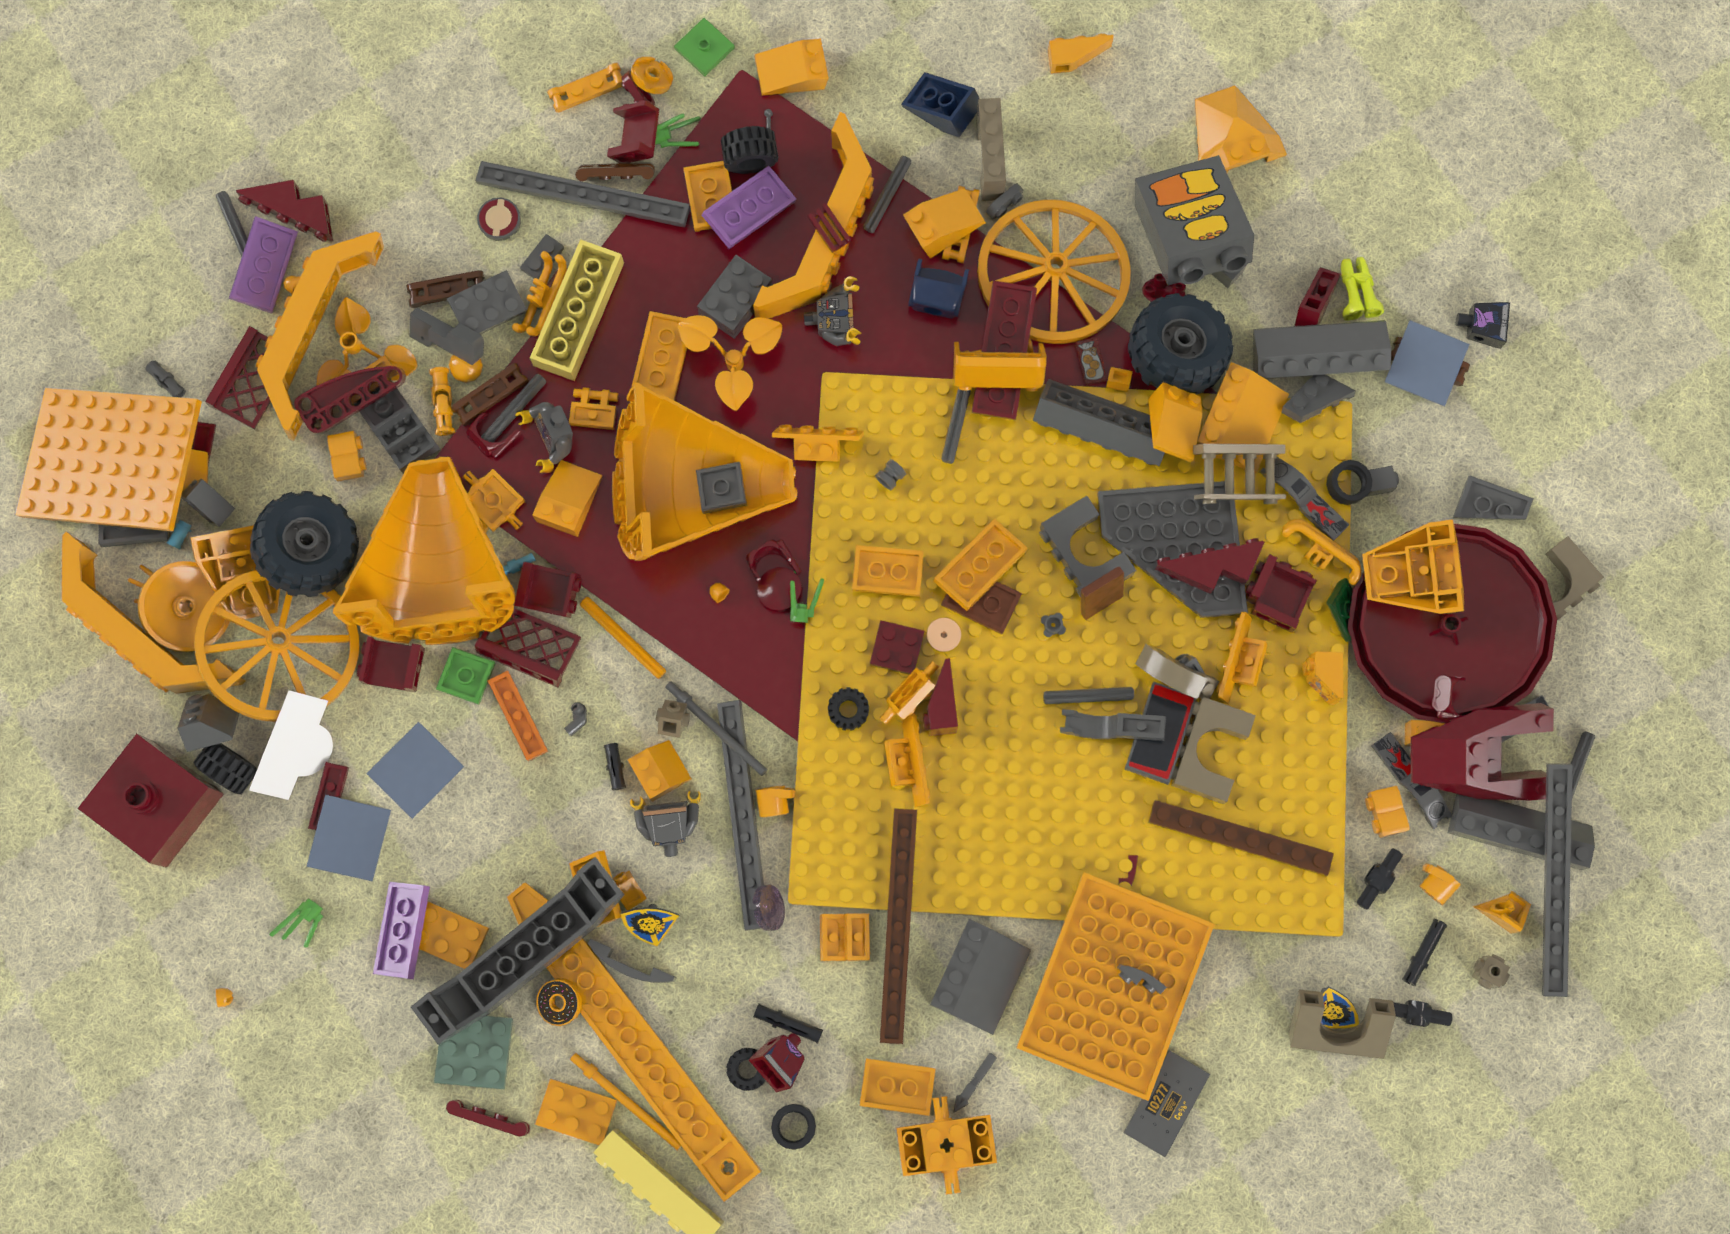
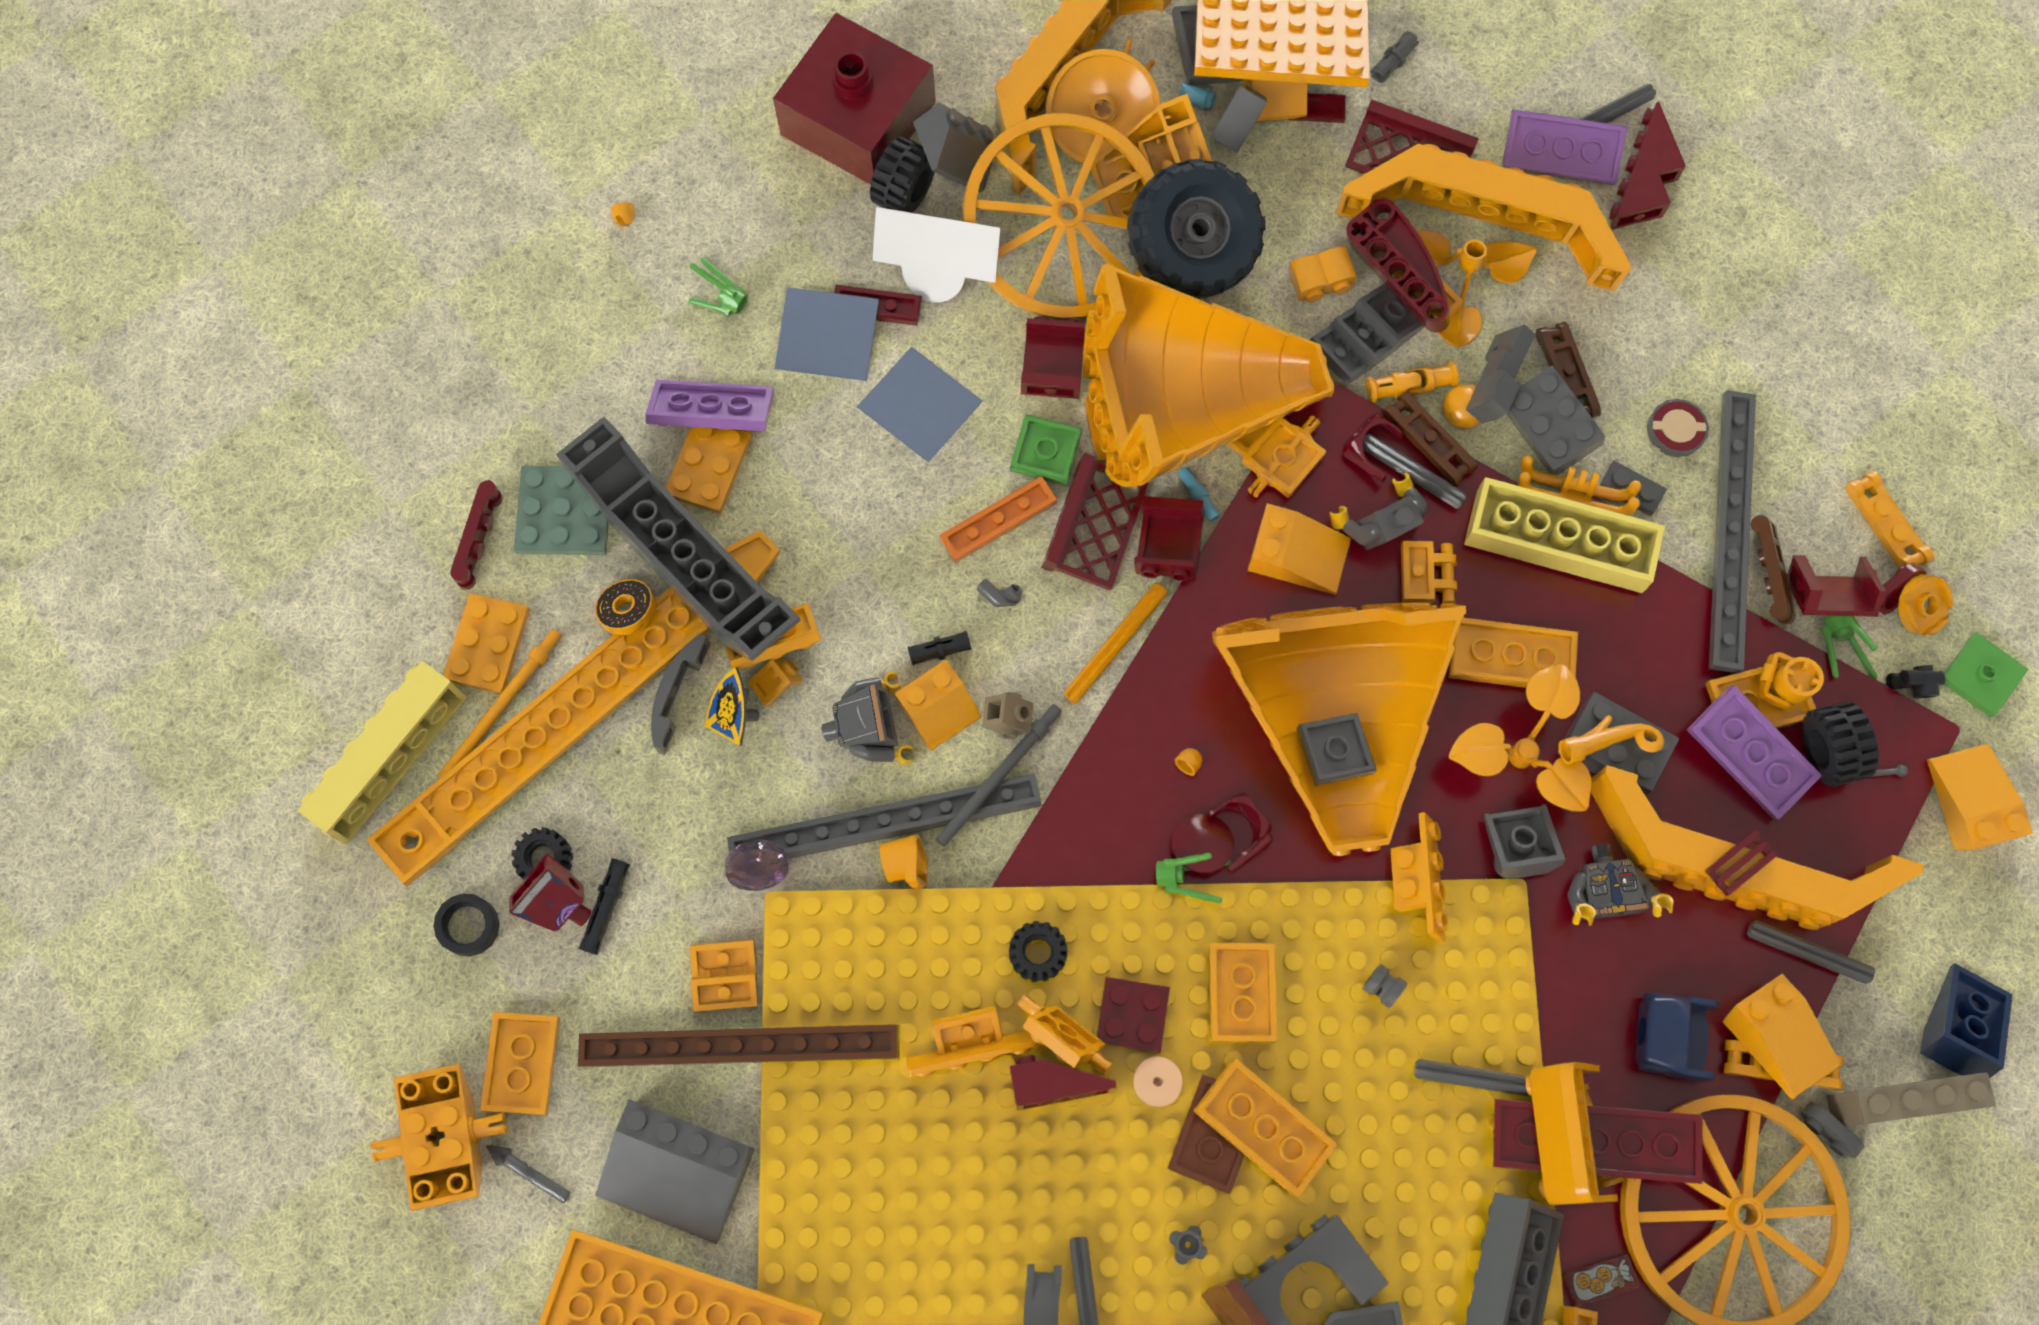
camera: 85 degrees right, 5 degrees down
(702, 175) = (1792, 682): none -> light orange piece
(706, 88) = (1921, 679): none -> black plate
(739, 323) = (1577, 748): none -> light orange plant
(798, 369) = (1524, 842): none -> dark grey slope

